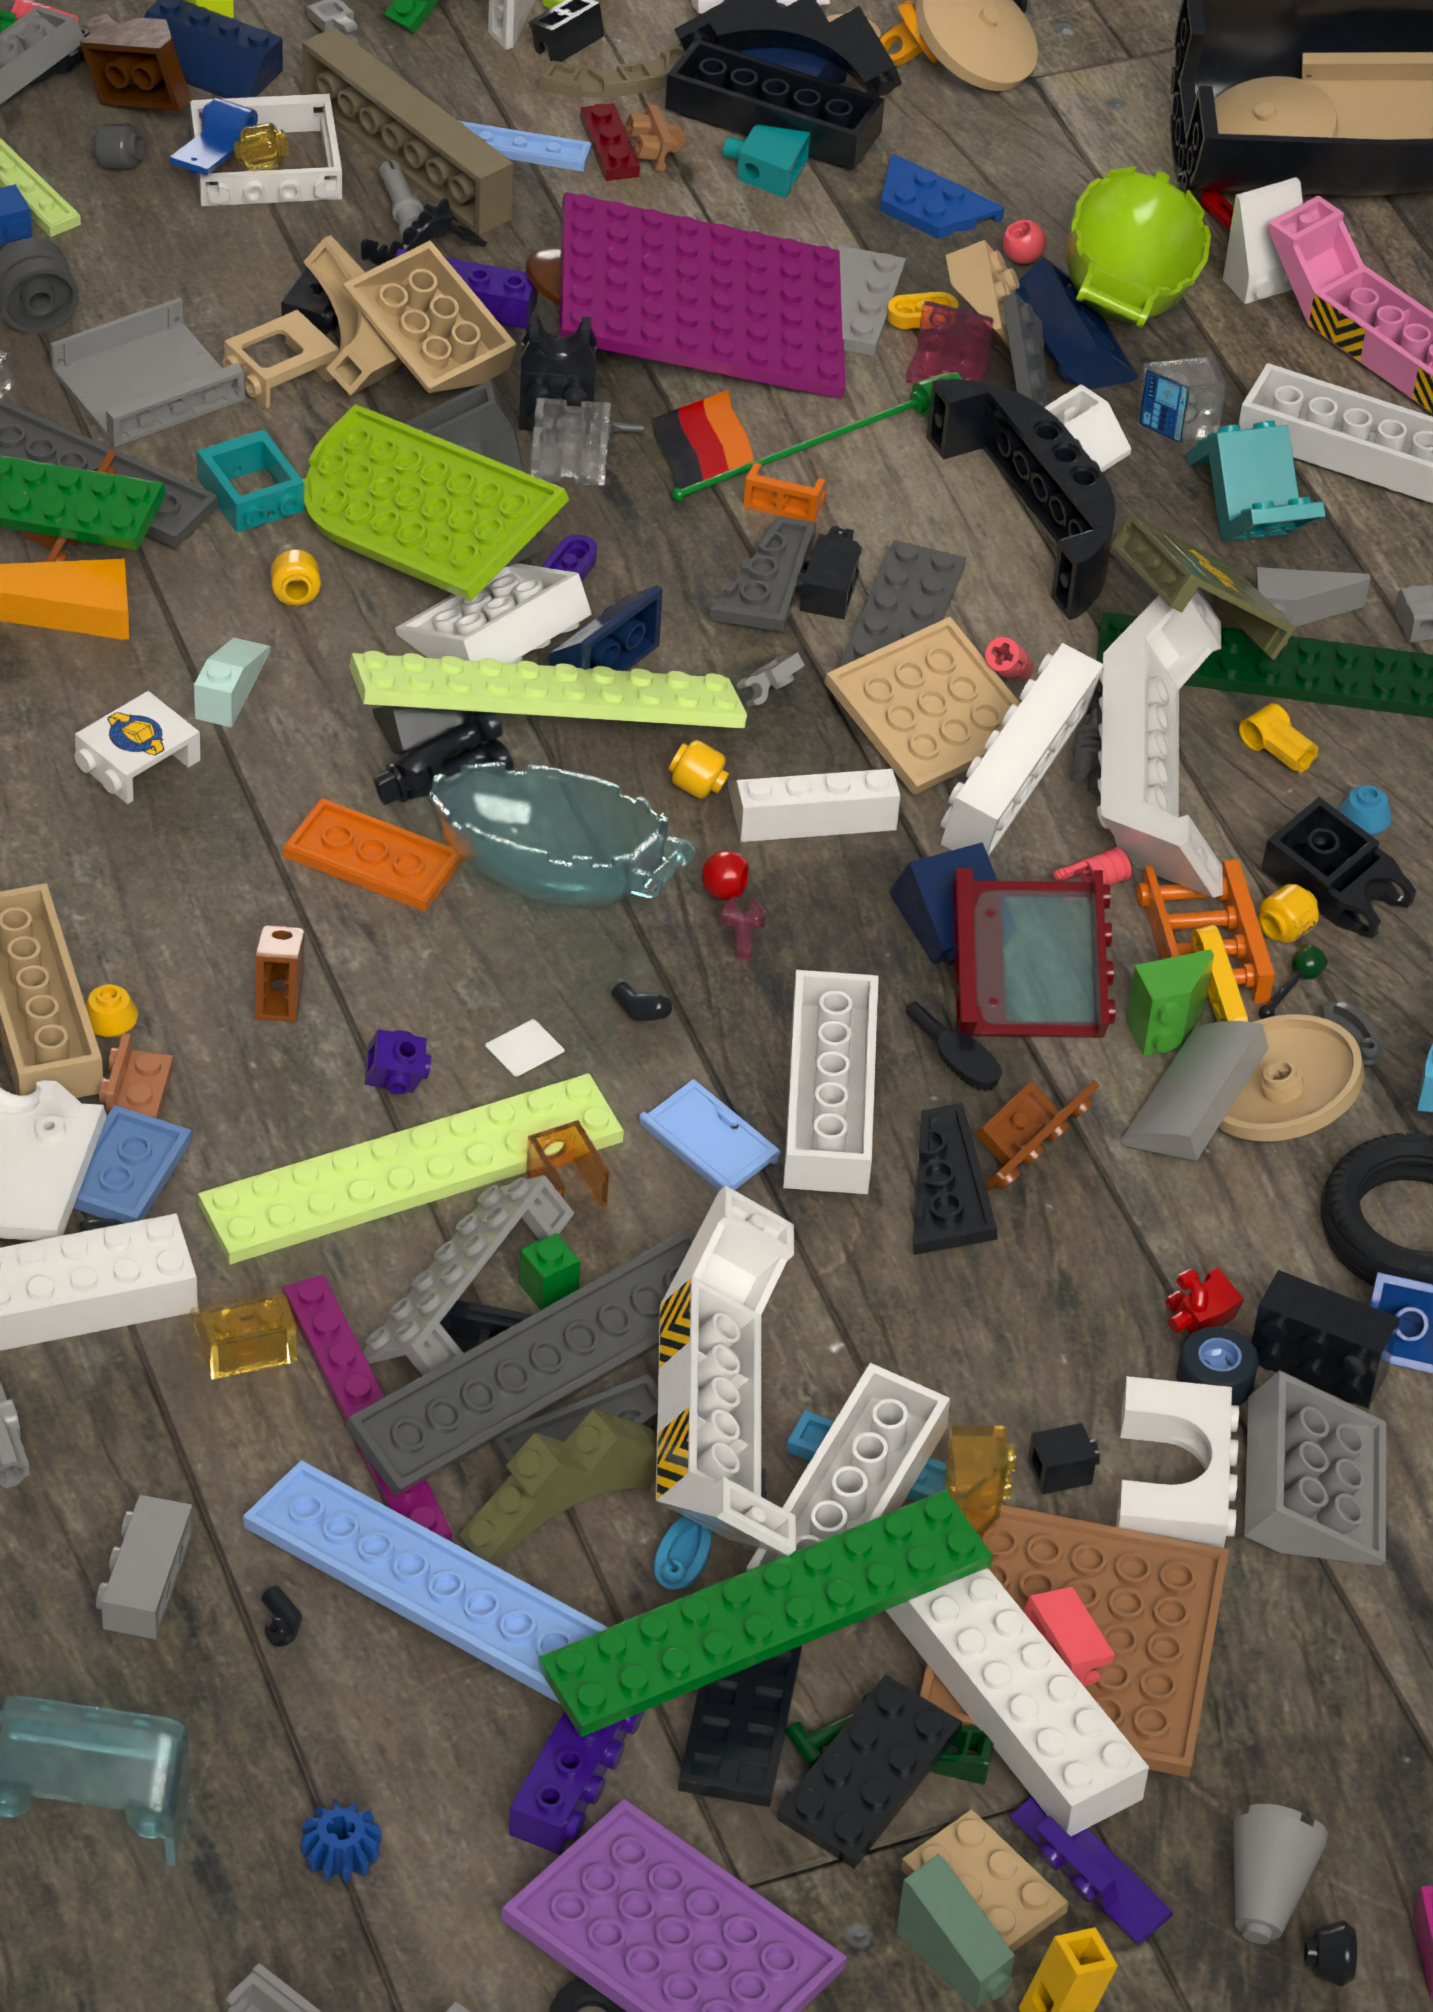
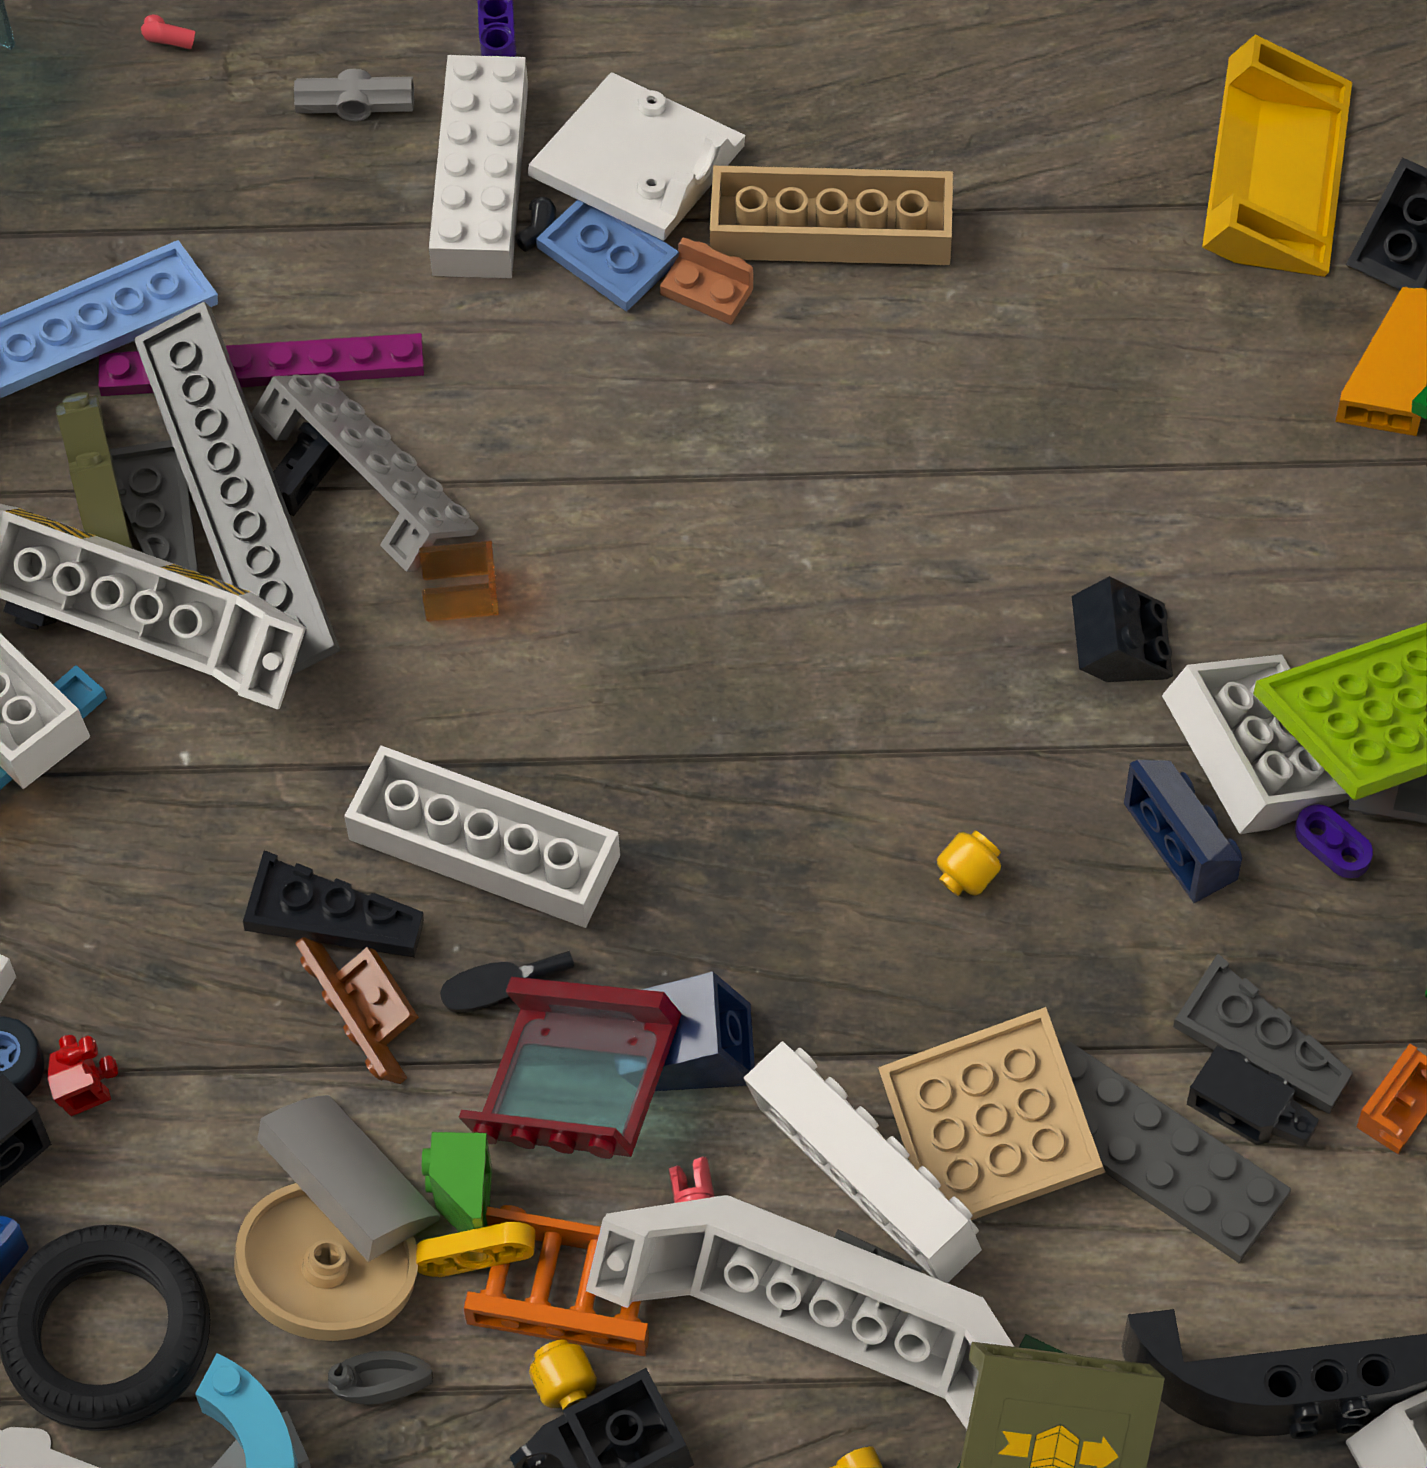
camera: 115 degrees right, 15 degrees up
(111, 1011) = (806, 282): yellow cone -> none
(133, 741) = (1155, 376): white panel -> none
(145, 1566) = (158, 164): light grey brick -> none
(228, 681) = (1238, 481): light aqua slope -> none
(246, 1333) = (385, 290): clear yellow slope -> none
(279, 957) = (799, 413): dark orange torso -> none
(285, 1620) = (67, 252): black arm -> none
(295, 577) = (1371, 572): yellow head -> none
(372, 854) = (951, 548): orange tile -> none
(397, 1061) = (646, 478): dark purple brick -> none
(399, 1170) = (529, 478): yellowish green plate -> none
(417, 767) = (1049, 636): black piece -> none
(524, 1047) = (651, 610): white sticker -> none
(546, 690) = (1093, 732): yellowish green plate -> none
(548, 1270) = (348, 533): green brick -> none
(556, 834) = (870, 660): clear light blue windscreen -> none
(641, 1006) = (661, 715): black arm -> none
(701, 1135) = (473, 719): light blue door -> none
(725, 875) = (805, 840): red piece -> none
(743, 924) = (744, 846): clear pink bar -> none
(775, 673) = (1097, 984): light grey plate -> none
(815, 804) = (898, 963): white slope -> none
(1009, 659) = (1036, 1222): coral hinge -> none
(1306, 965) = (491, 1371): hinge -> none

